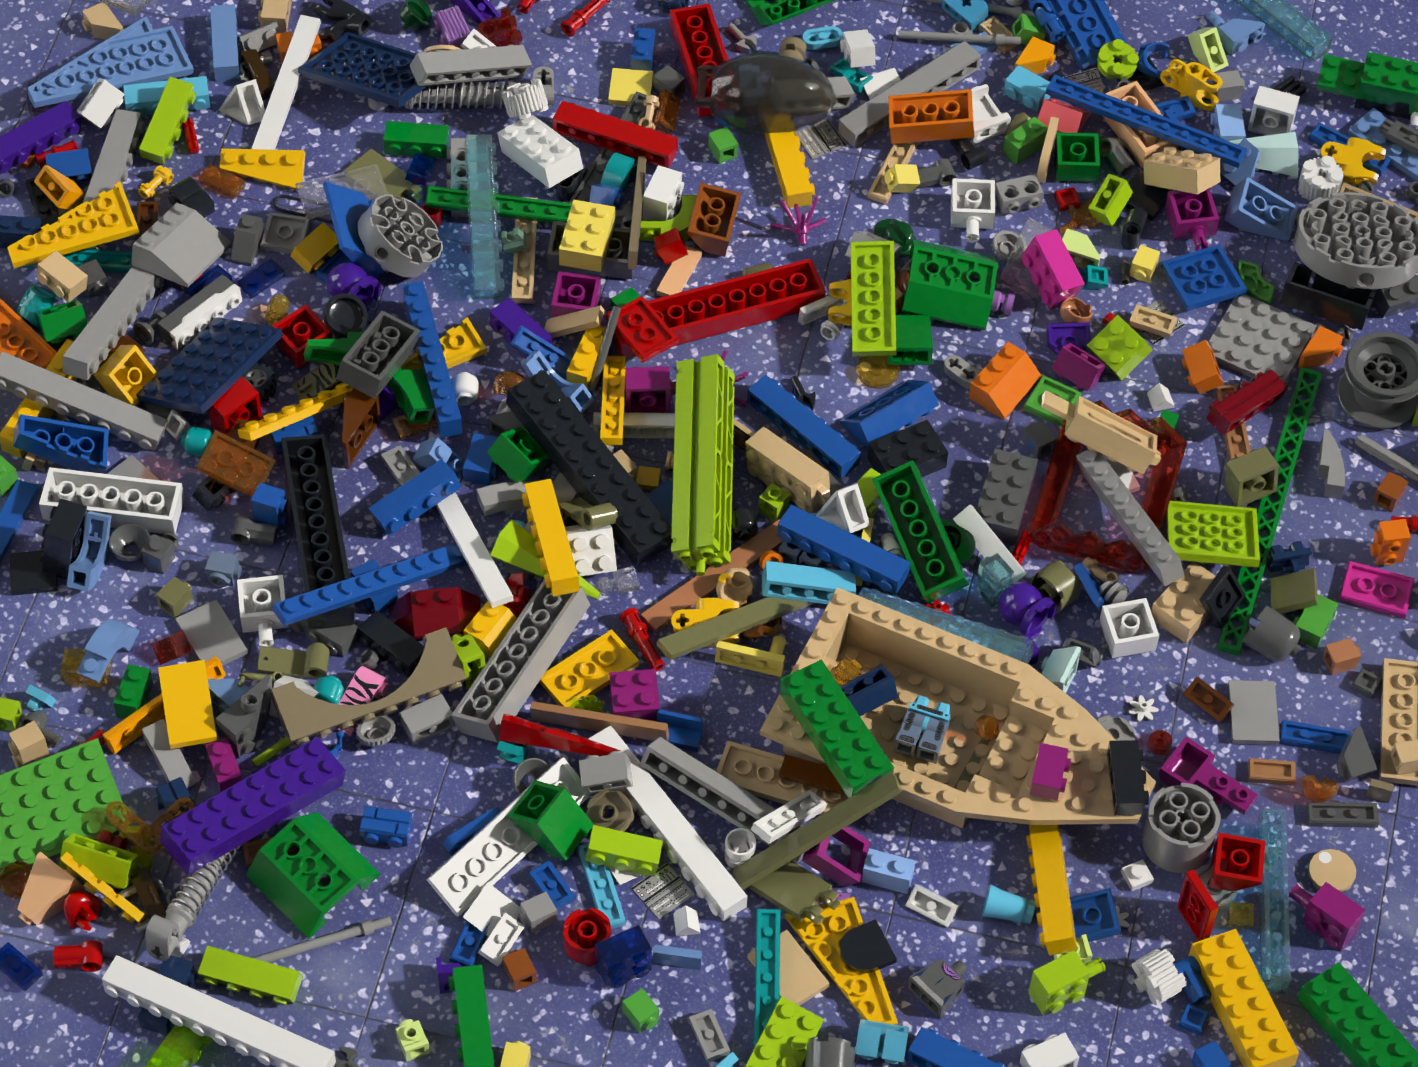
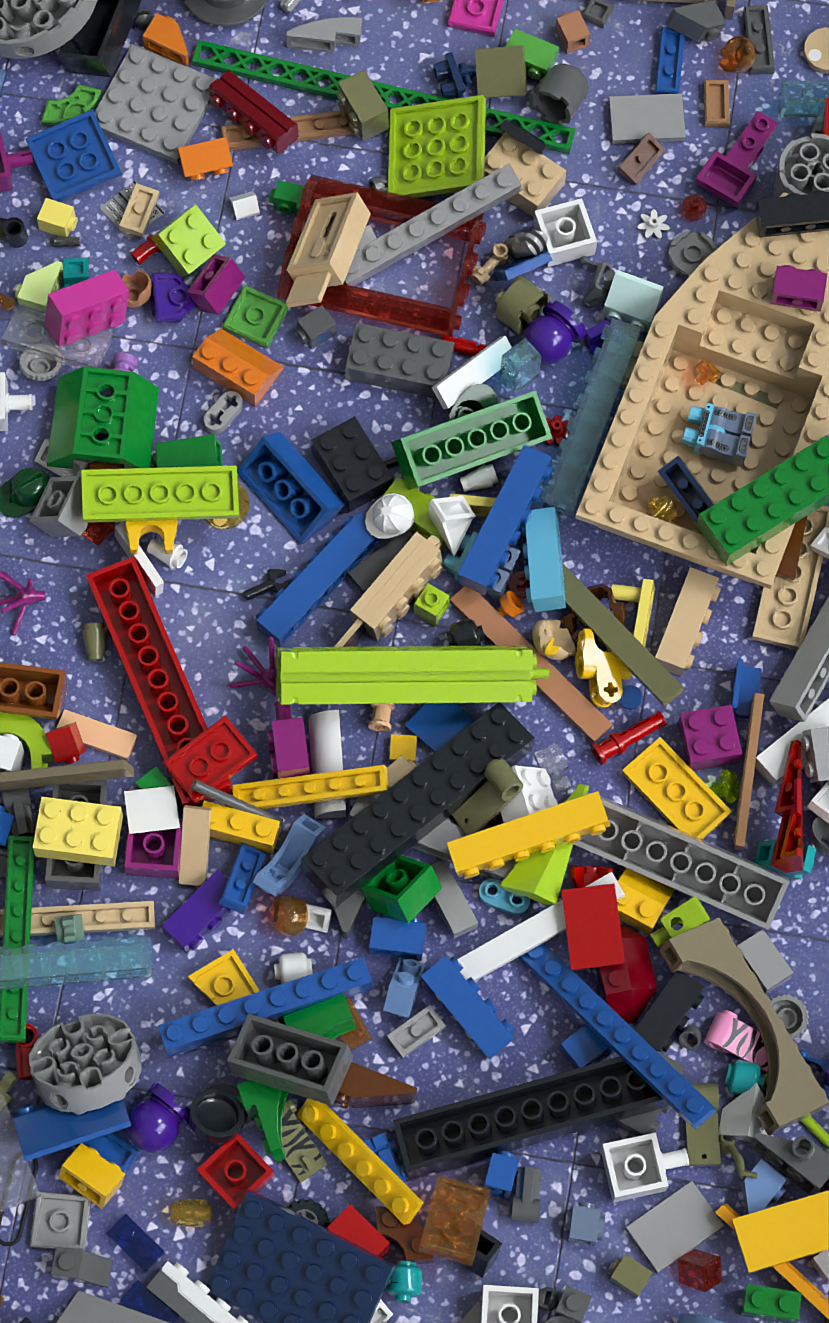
camera: 95 degrees left, 15 degrees up
(466, 579) = (593, 927): none -> red tile
(604, 290) = (151, 809): none -> white sticker
(738, 688) = (686, 621): none -> tan brick
(852, 469) = (389, 516): none -> white piece

